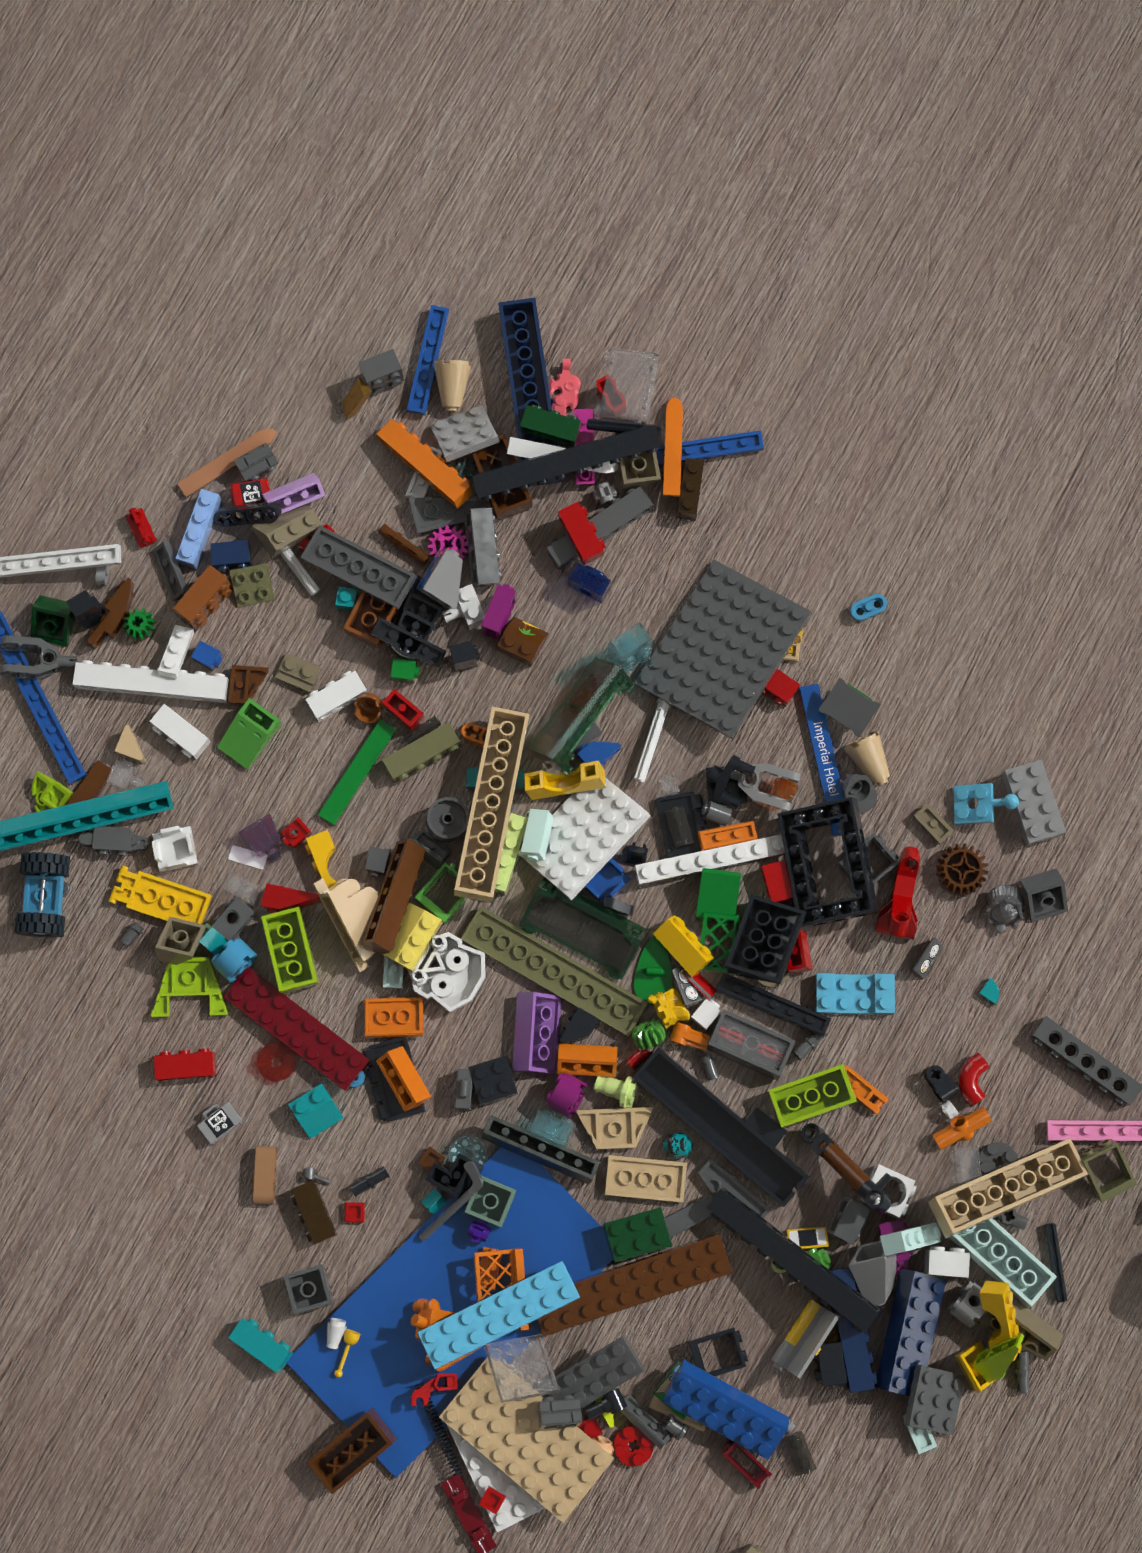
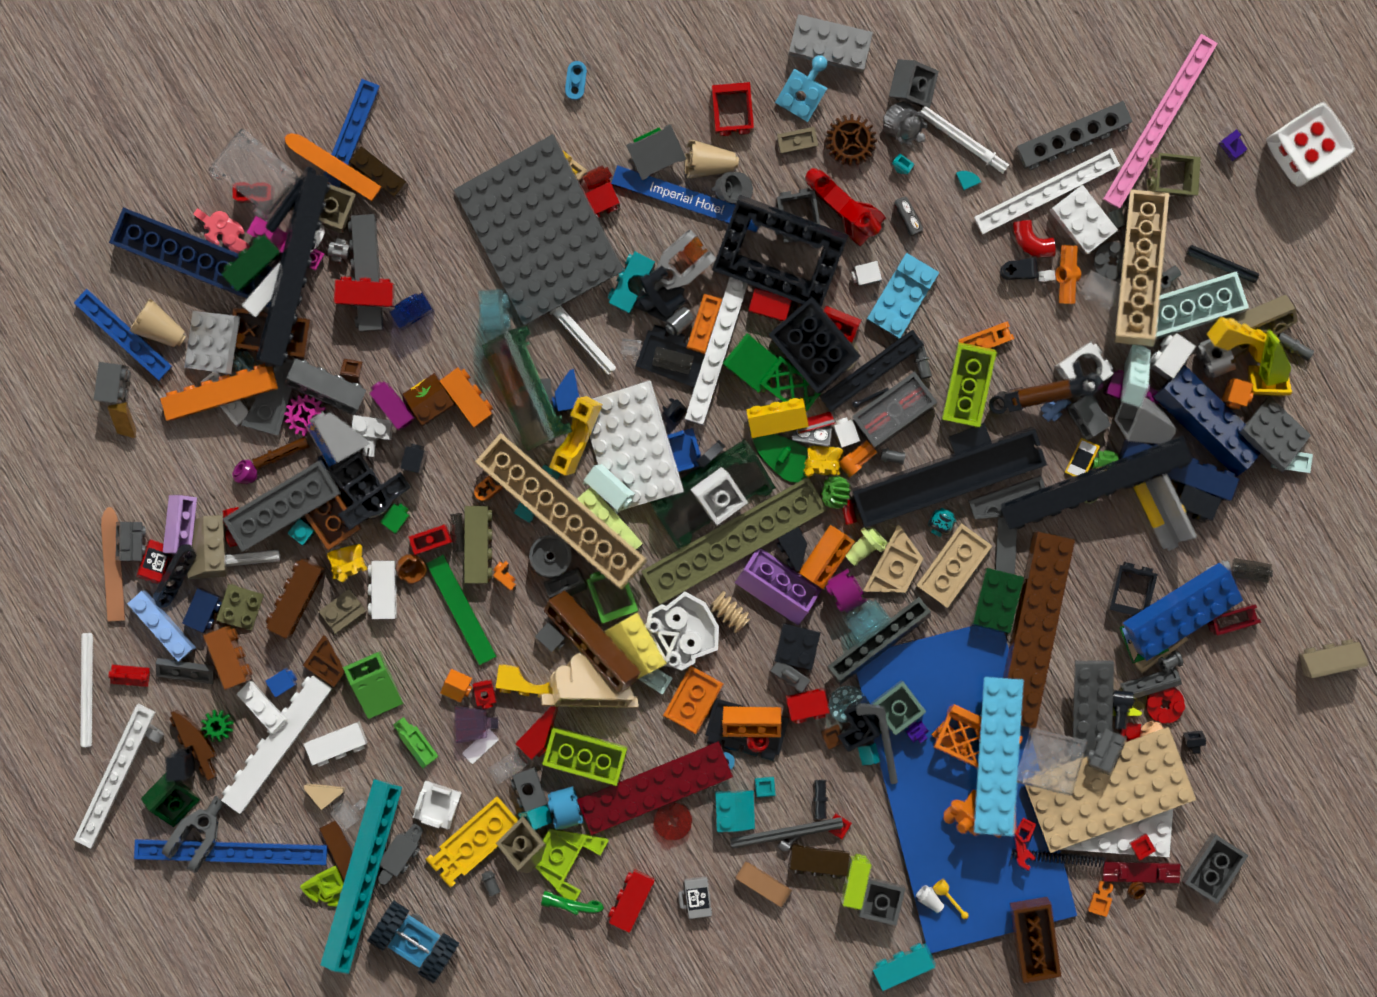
camera: 60 degrees left, 10 degrees up
(108, 499) = (86, 689): none -> white axle
(150, 1016) = (572, 906): none -> green plant
(219, 799) = (415, 742): none -> bright green hinge
(286, 625) = (295, 598): none -> reddish brown brick
(288, 804) = (456, 686): none -> orange brick
(313, 1255) = (856, 881): none -> lime brick
(322, 1168) = (785, 833): none -> dark grey axle
(342, 650) = (346, 561): none -> yellow hair
(352, 1126) = (765, 786): none -> teal tile
(369, 524) = (244, 472): none -> magenta cone
(387, 1096) = (757, 744): none -> red hat
(407, 785) = (506, 578): none -> orange bracket
(420, 1492) = (1099, 901): none -> orange plate
(446, 1118) = (807, 705): none -> red brick
(449, 1520) = (1136, 890): none -> reddish brown plate
(488, 1004) = (730, 612): none -> tan piece
(509, 563) = (351, 370): none -> reddish brown slope
(544, 671) = (467, 396): none -> orange brick
(585, 933) = (719, 496): none -> white brick
(616, 1492) = (1194, 740): none -> black tile
(708, 751) = (622, 297): none -> teal arch
(736, 1009) = (856, 404): none -> black hinge
(797, 672) = (597, 177): none -> clear red brick
(835, 1186) = (1053, 410): none -> medium blue plate
(855, 950) = (866, 273): none -> white brick
(942, 741) = (733, 88): none -> red window
(949, 1343) = (1237, 394): none -> orange brick
(968, 926) = (902, 164): none -> teal slope
(1017, 1113) = (1083, 220): none -> white brick
(1022, 969) = (965, 140): none -> white axle
(1023, 1067) = (1046, 191): none -> white plate
(1037, 1143) = (1117, 218): none -> pearl dark grey hinge

